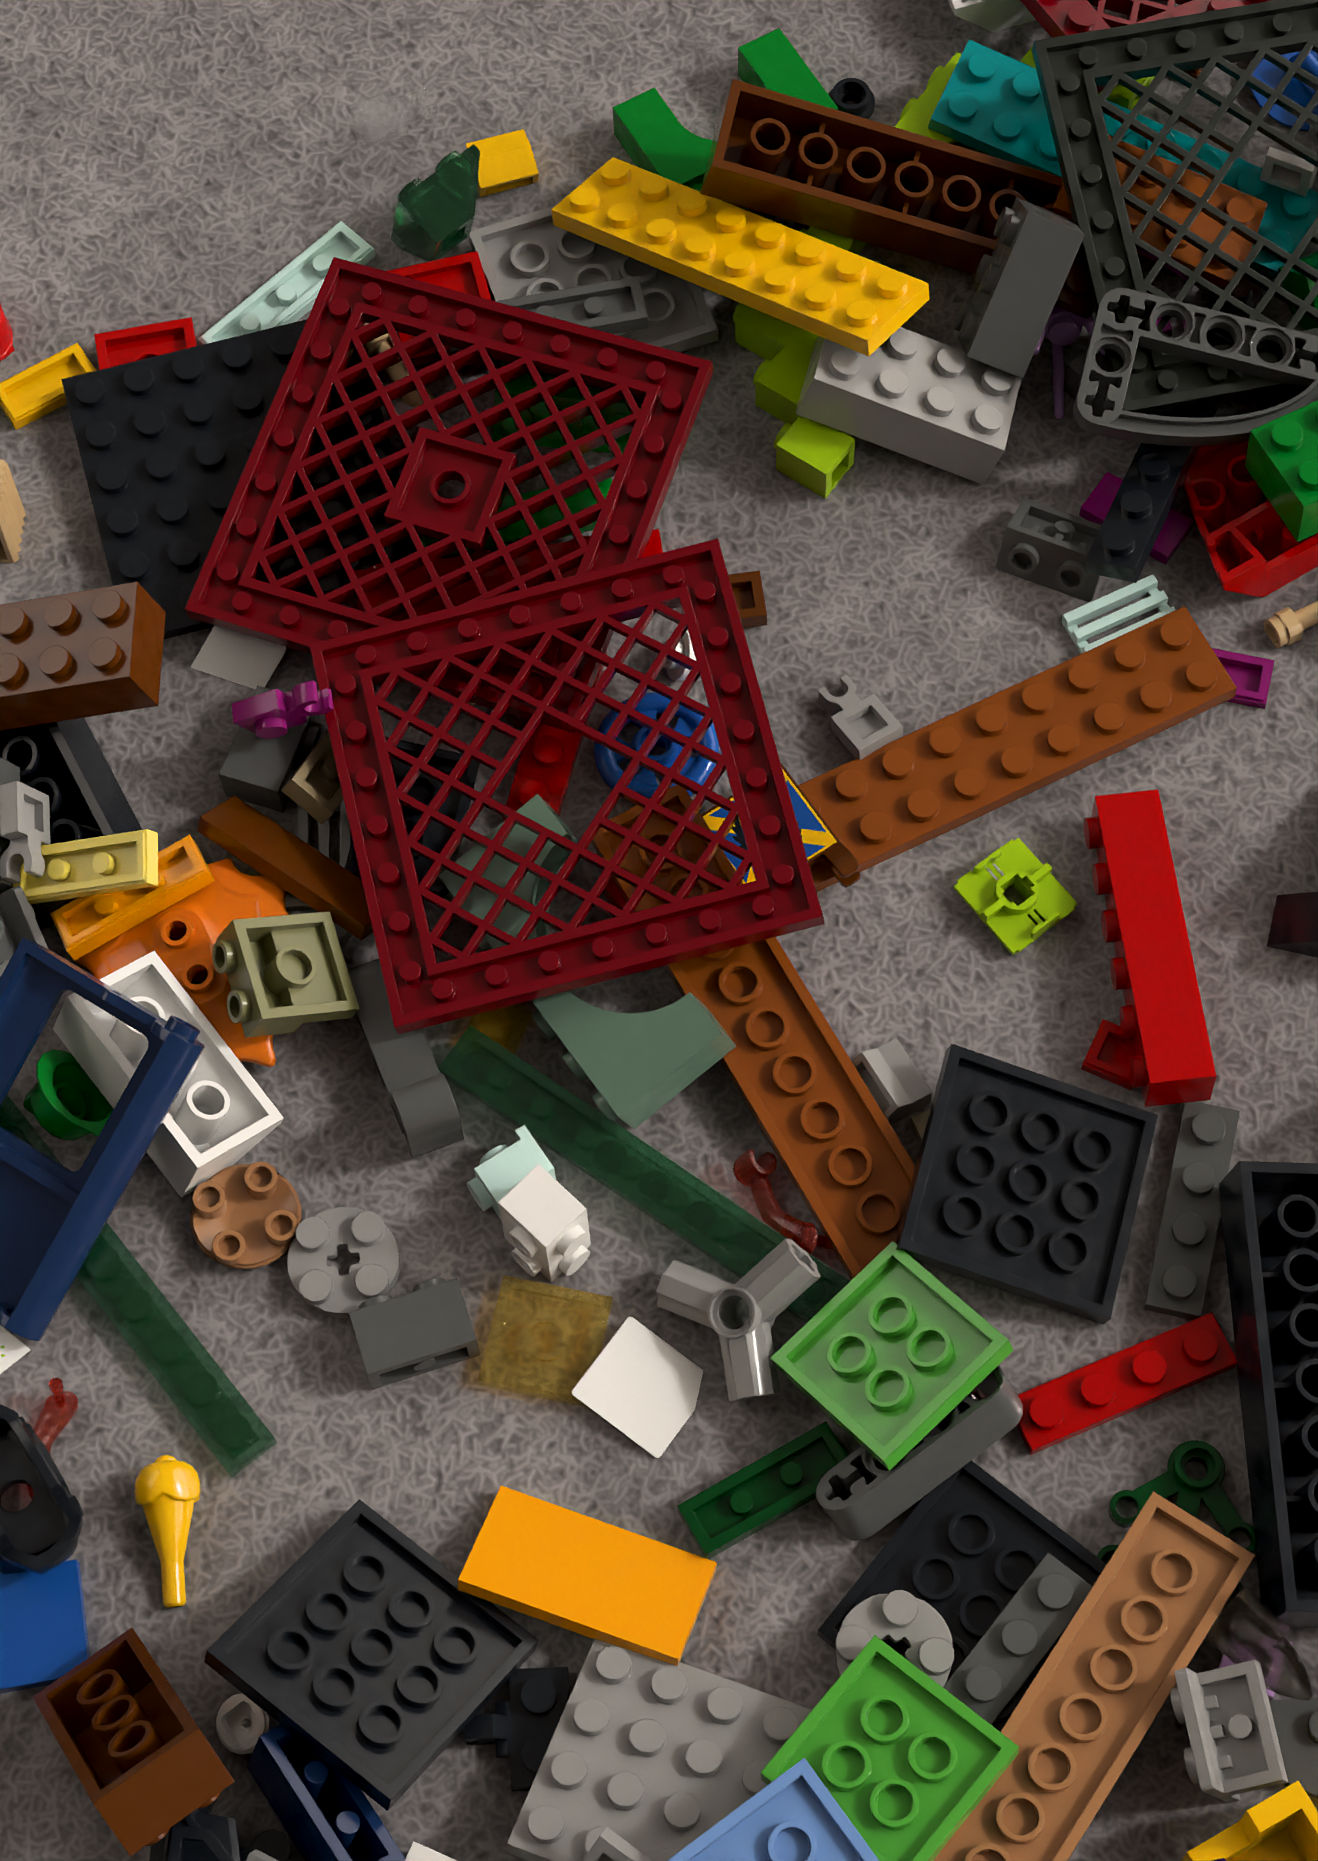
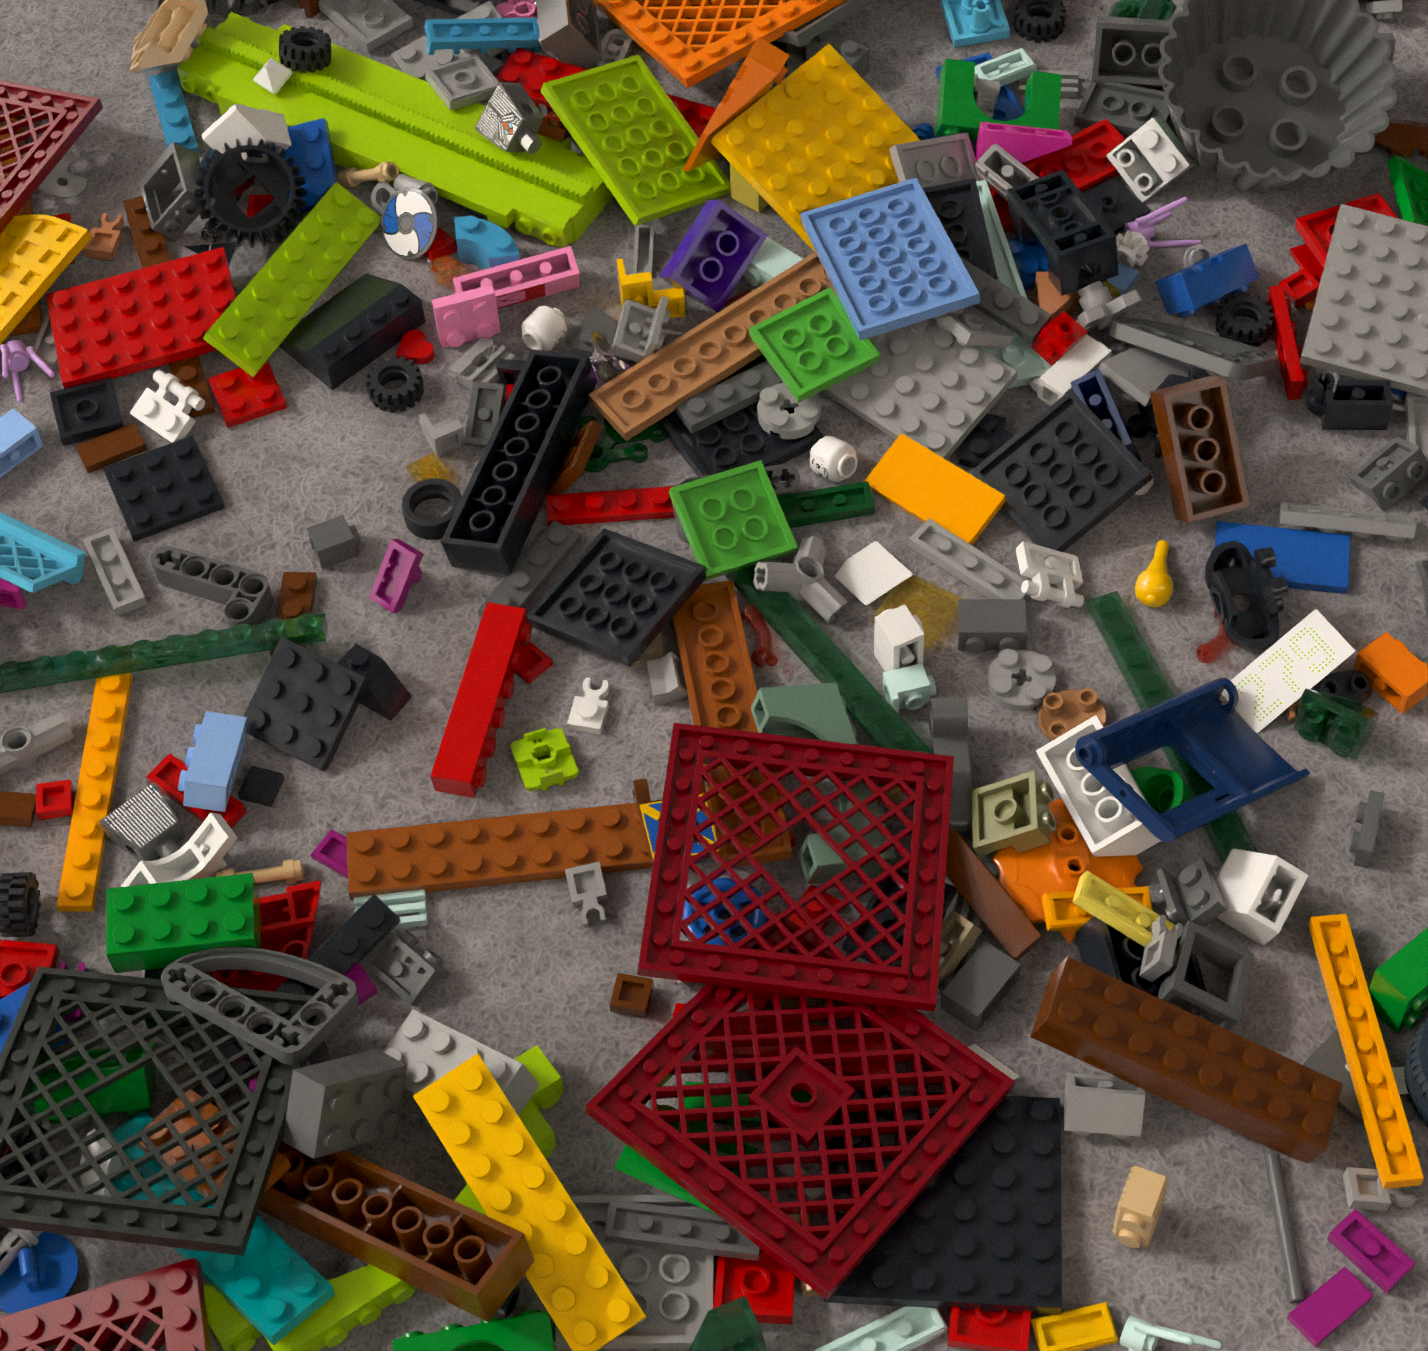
camera: 160 degrees left, 10 degrees down
(276, 711) = (970, 967): magenta plate -> none
(349, 1465) = (1052, 567): none -> white plate
(482, 1445) = (966, 562): none -> light grey plate
(783, 1586) = (833, 459): none -> white head
(987, 999) = (590, 711): none -> white plate
(1213, 1415) = (575, 458): none -> reddish brown tile

